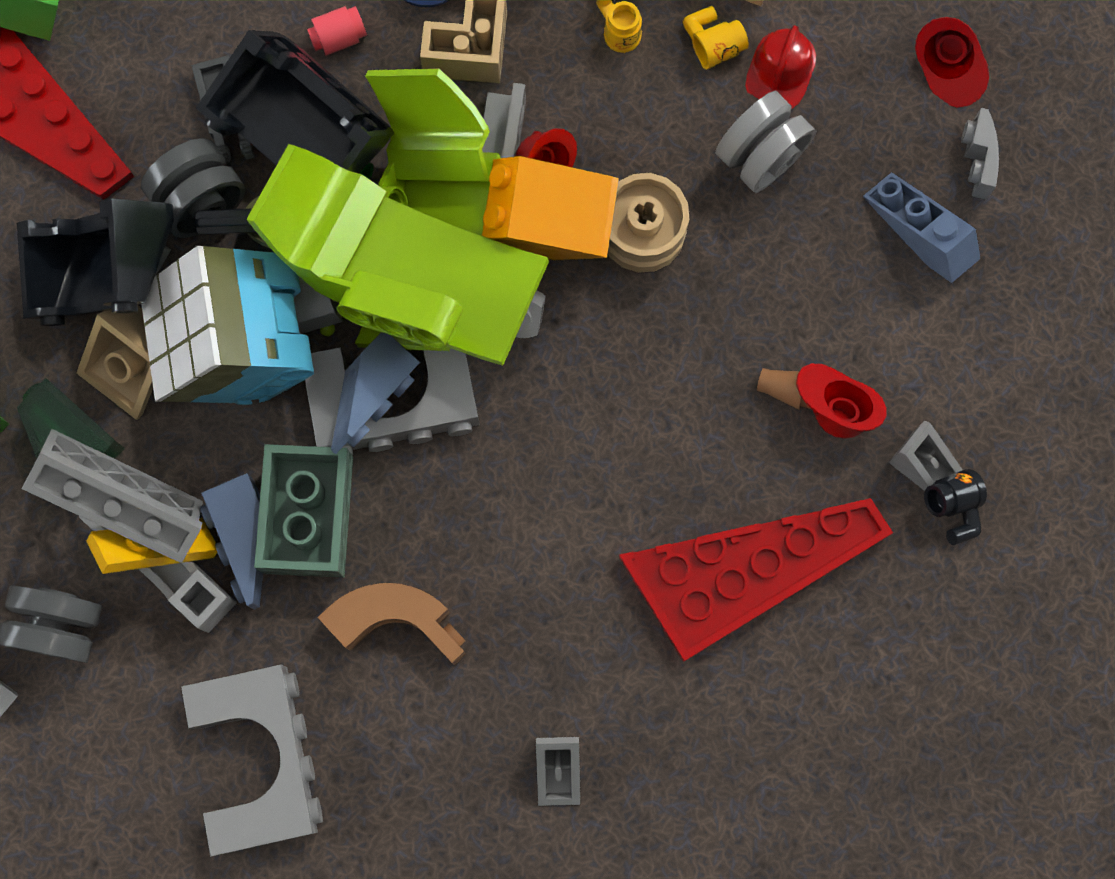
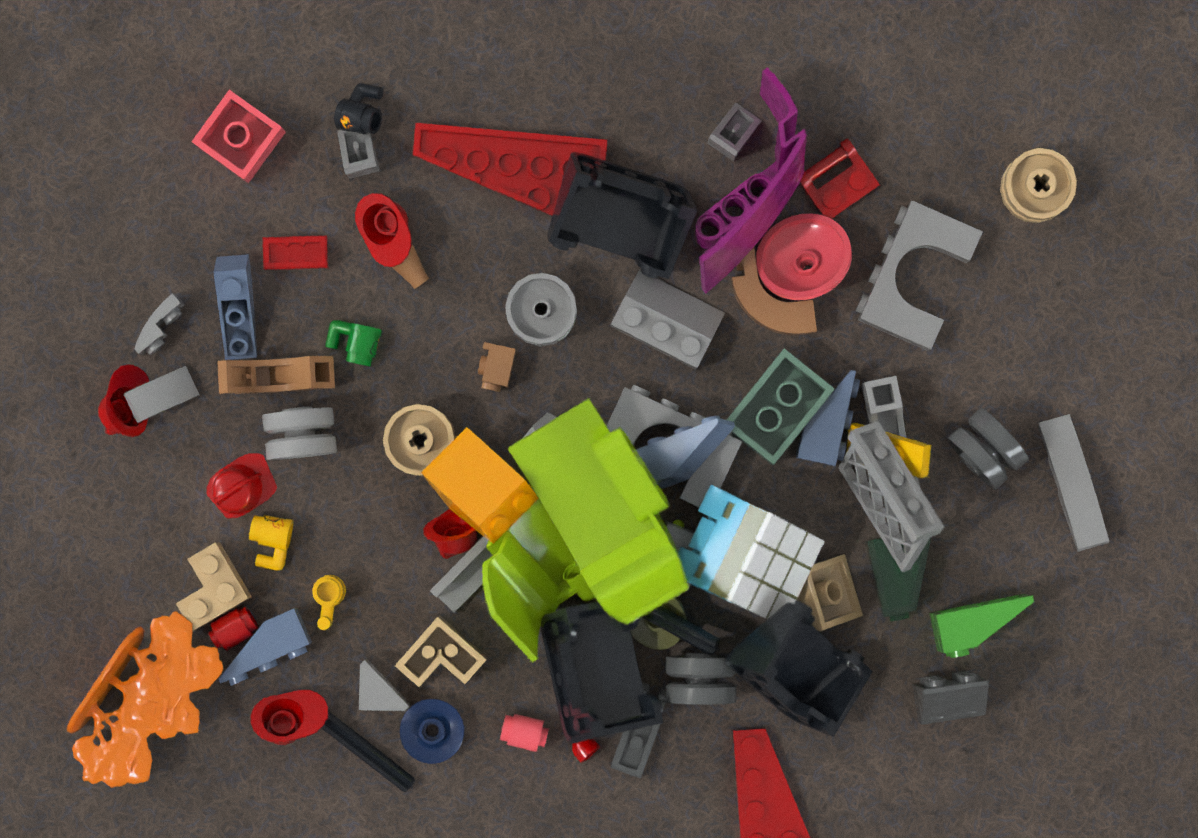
camera: 140 degrees left, 10 degrees up
(397, 796) = (843, 189): none -> red plate
(409, 693) = (801, 243): none -> coral dish
(472, 753) = (740, 234): none -> magenta beam
(484, 520) = (667, 320): none -> light grey slope
(612, 593) = (622, 213): none -> black windscreen
(617, 458) = (546, 328): none -> light grey wheel
(623, 350) = (496, 366): none -> medium nougat brick
(775, 279) = (361, 342): none -> green piece
(836, 183) = (276, 375): none -> medium nougat arch
(907, 318) = (295, 252): none -> red plate
(926, 90) = (161, 394): none -> light grey slope
(1057, 386) = (238, 136): none -> coral brick

